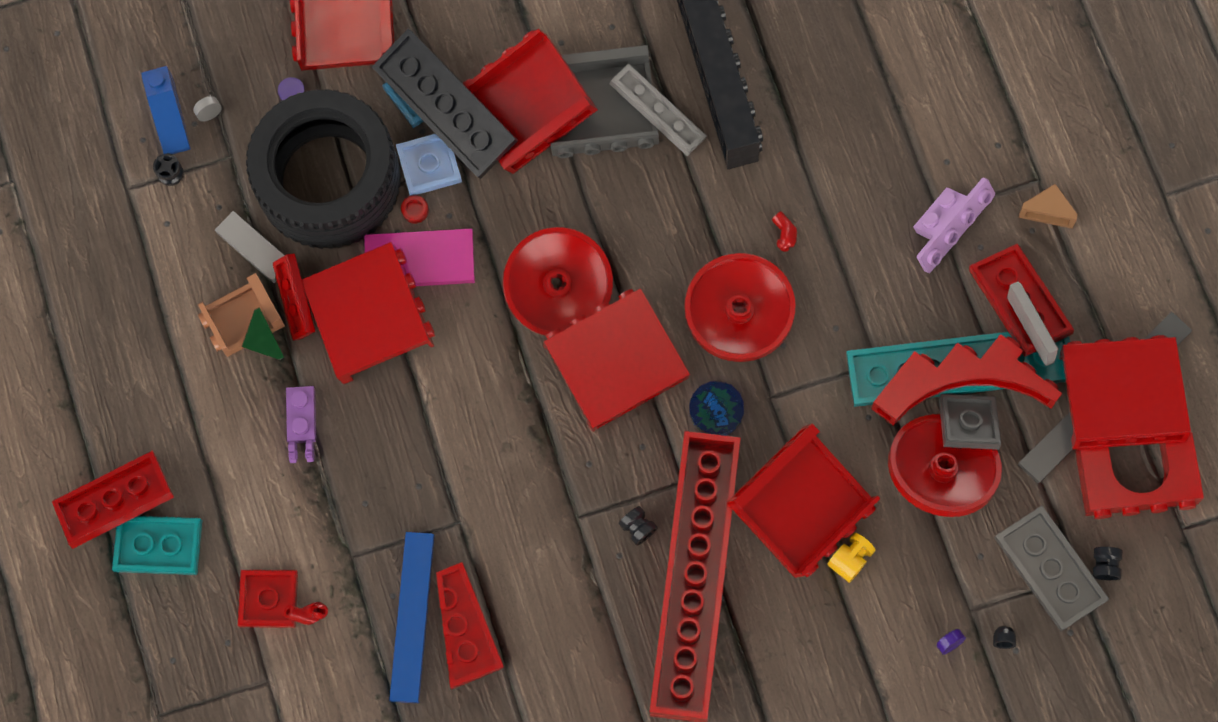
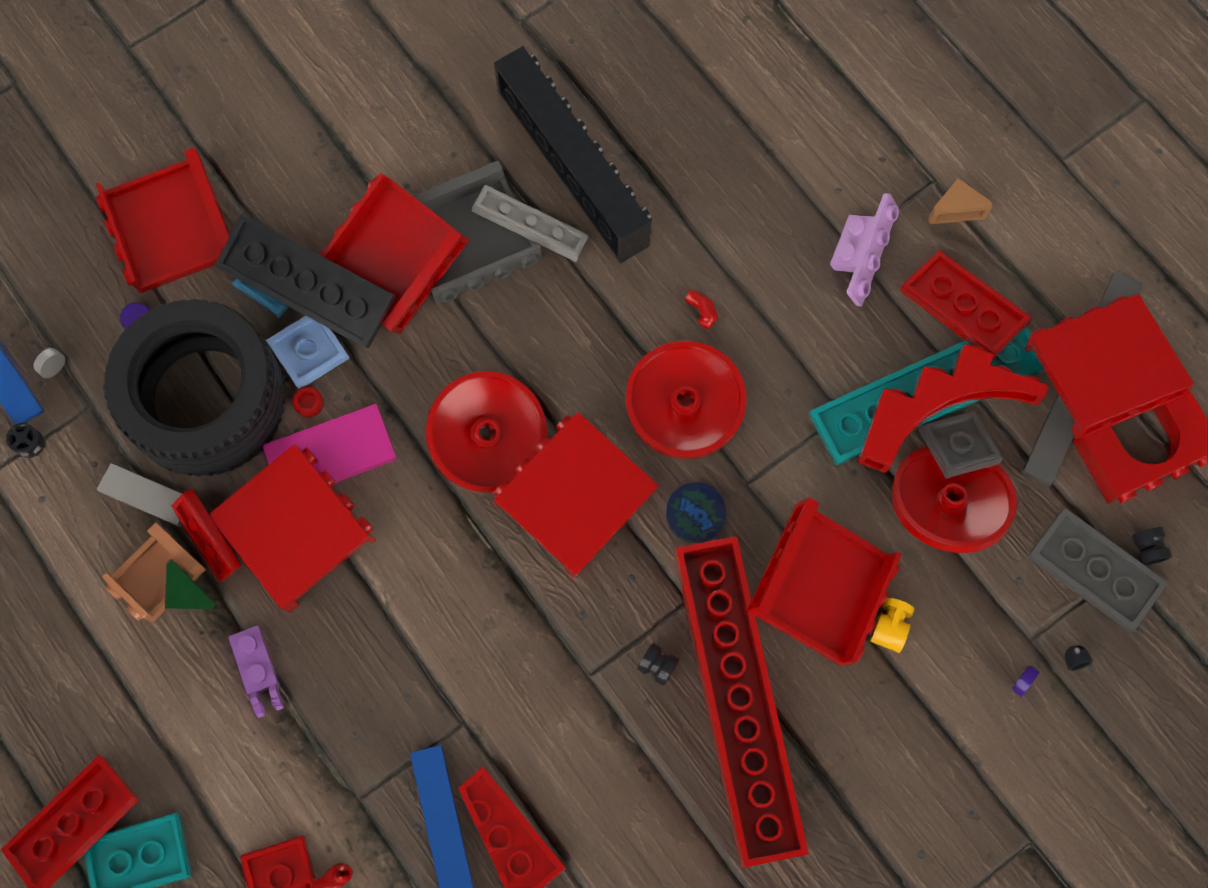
camera: 25 degrees left, 0 degrees up
(1032, 323) = (992, 323): light grey tile -> none

